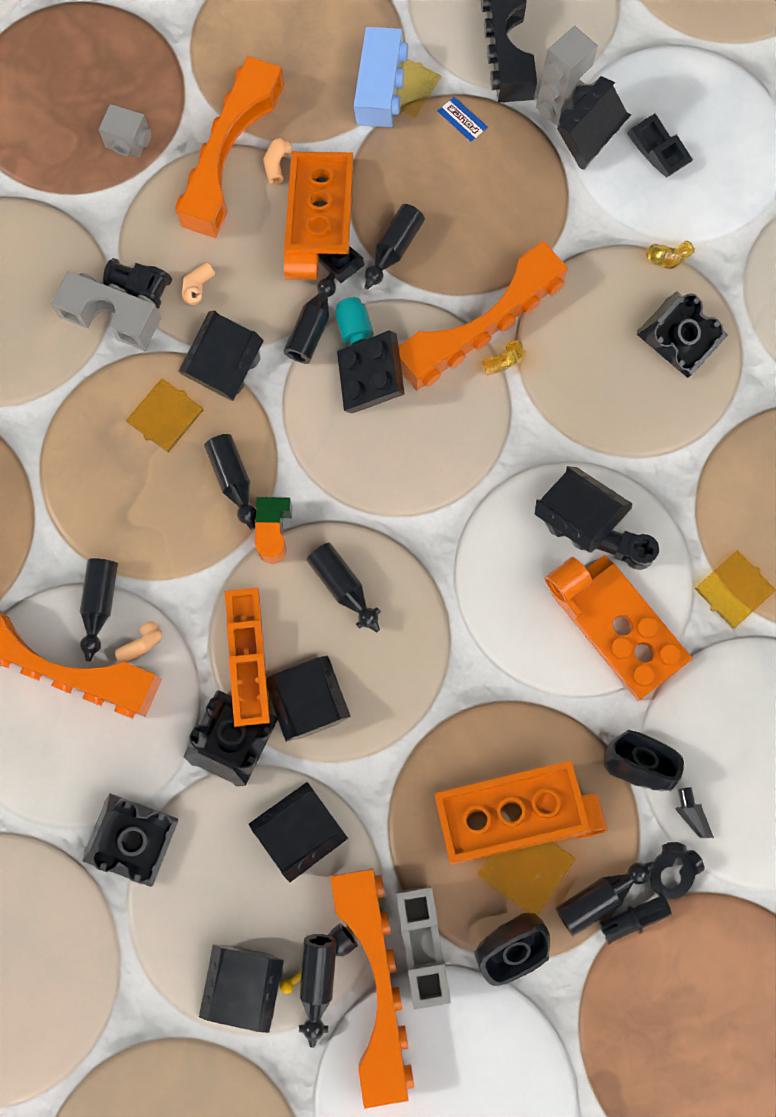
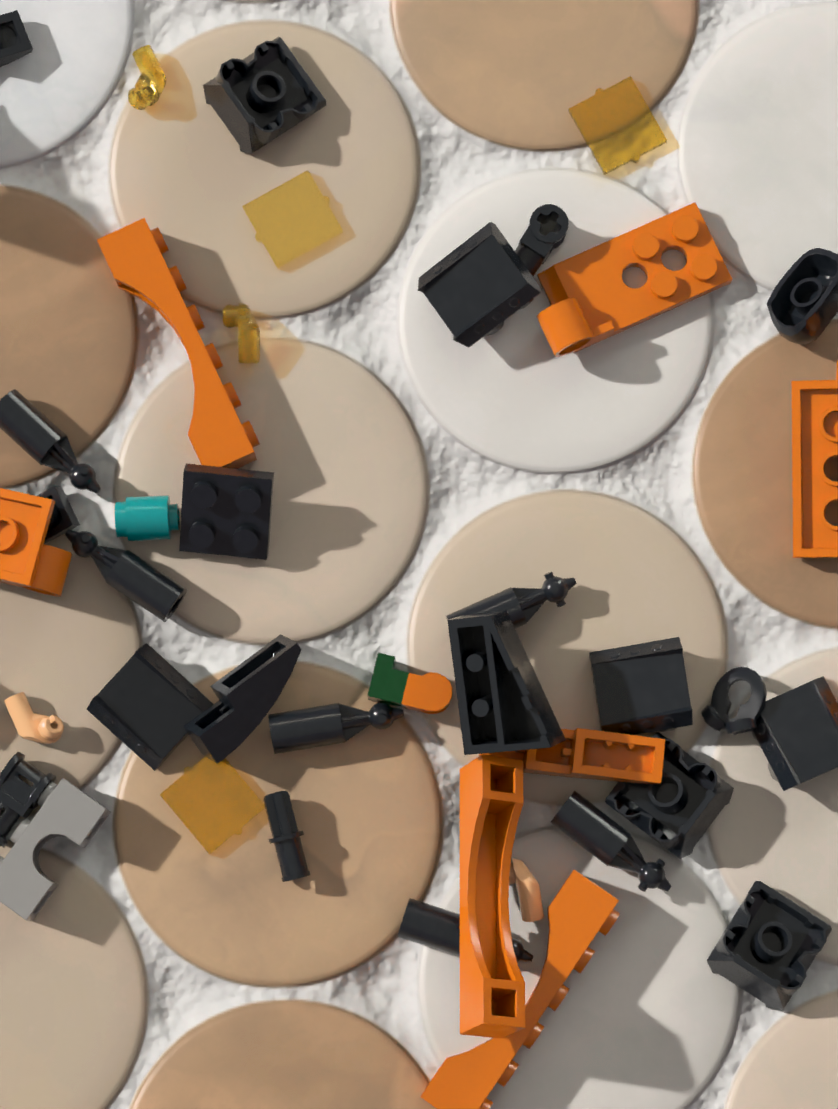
camera: 75 degrees left, 5 degrees up
(72, 621) = (489, 973): none -> orange arch
(146, 467) = (286, 836): none -> black axle
(186, 698) = (608, 841): none -> black wheel
(236, 414) = (244, 699): none -> black slope
(277, 585) = (498, 688): none -> black wedge
(300, 761) = (717, 712): none -> black piece
(597, 375) = (292, 219): none -> clear yellow piece

